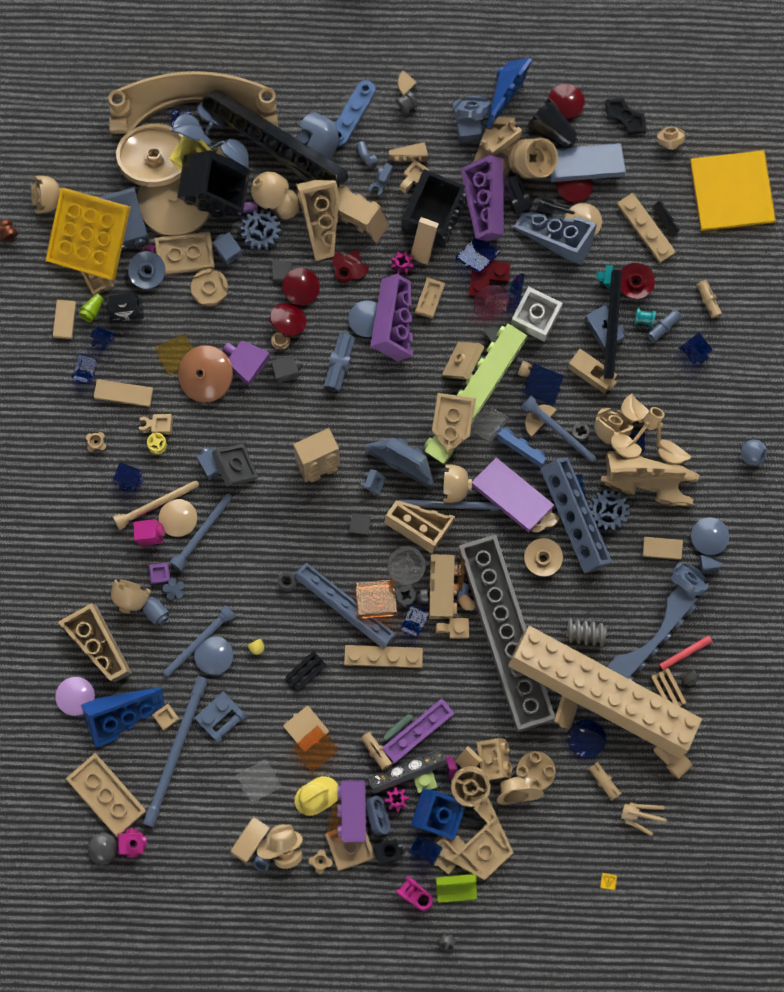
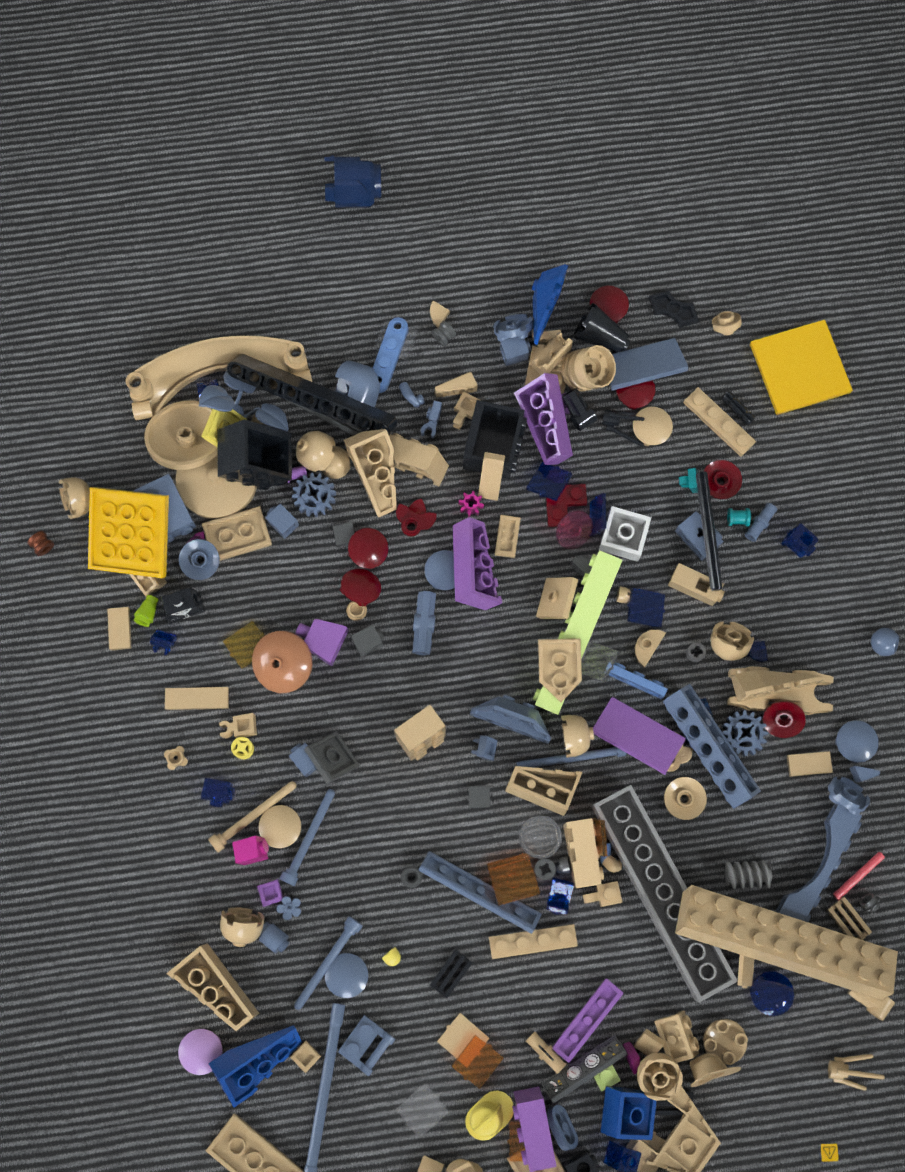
camera: 10 degrees left, 0 degrees up
(85, 369) = (150, 680): clear blue bracket -> none
(209, 287) = (269, 566): tan tile -> none
(397, 728) = (561, 1023): sand green piece -> none
(402, 799) = (581, 1111): dark pink gear -> none
(531, 406) = (639, 634): sand blue piece -> none
(564, 236) = (636, 445): sand blue wedge -> none
(604, 781) = (802, 1038): tan pin -> none
(634, 412) = (753, 663): tan plant -> none
(644, 511) = (784, 726): none -> dark red dish
(709, 299) = (801, 485): tan pin -> none

